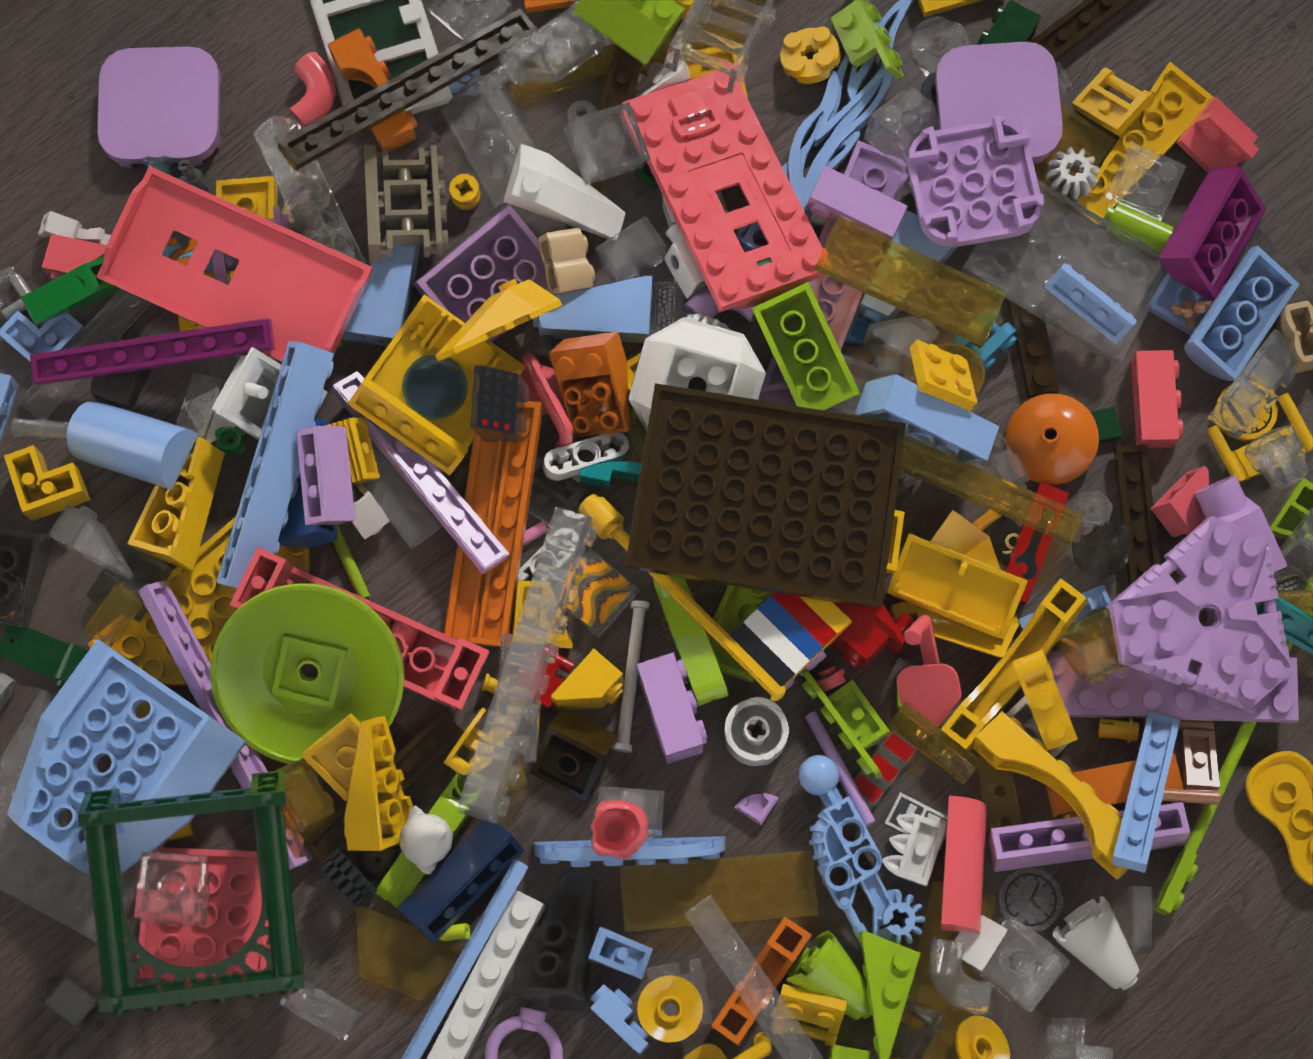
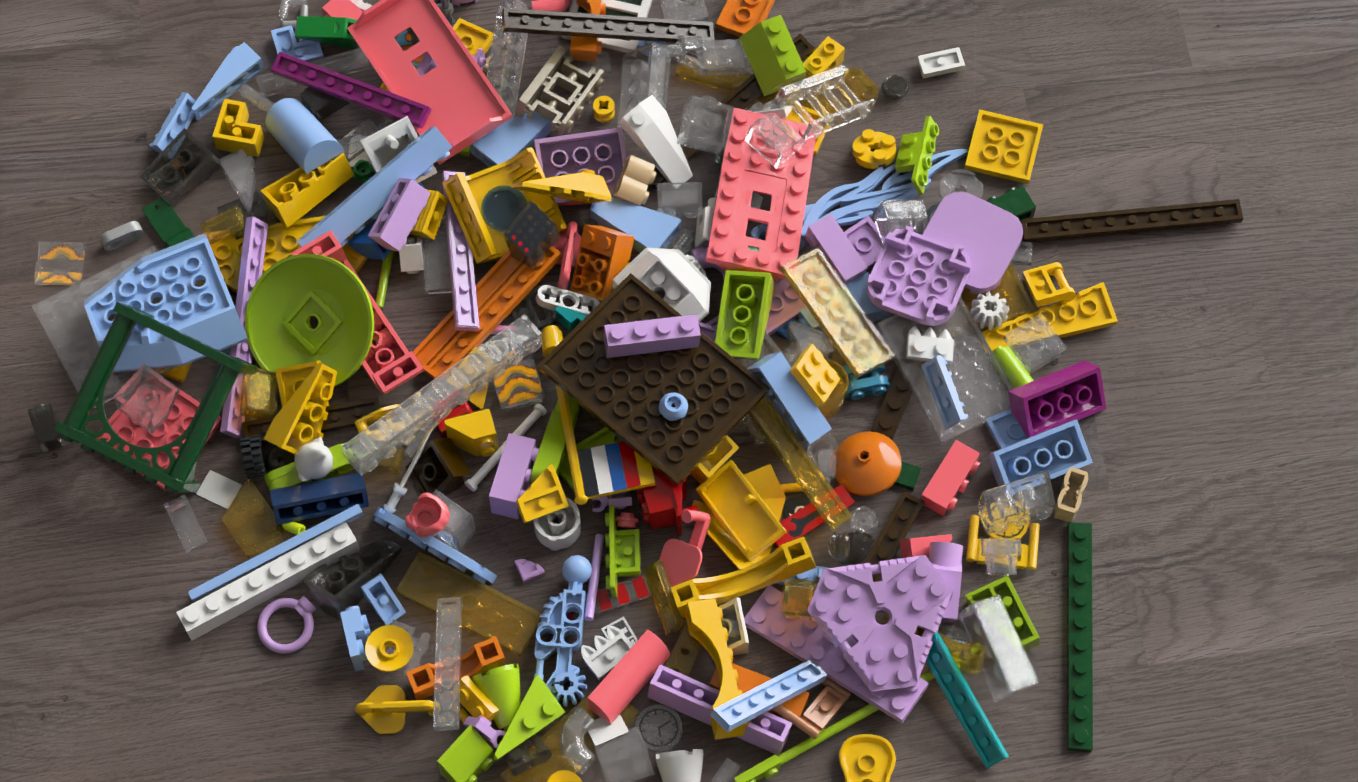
camera: 30 degrees right, 10 degrees down
(328, 939) = (219, 489): none -> white sticker
(544, 805) = (399, 490): none -> white sword
(700, 114) = (774, 139): none -> clear slope
(728, 717) = (542, 497): none -> yellow wing
(736, 447) = (651, 336): none -> lavender brick
(812, 526) = (673, 413): none -> light blue plate
(844, 1035) = (483, 727): none -> lavender plate
(1037, 259) = (928, 346): none -> white plate
(1045, 700) = (745, 606): yellow plate -> none
(1118, 729) = (784, 659): yellow pin -> none
(1191, 311) = (1008, 438): medium nougat plant -> none
(1218, 138) = (1102, 345): coral bracket -> none

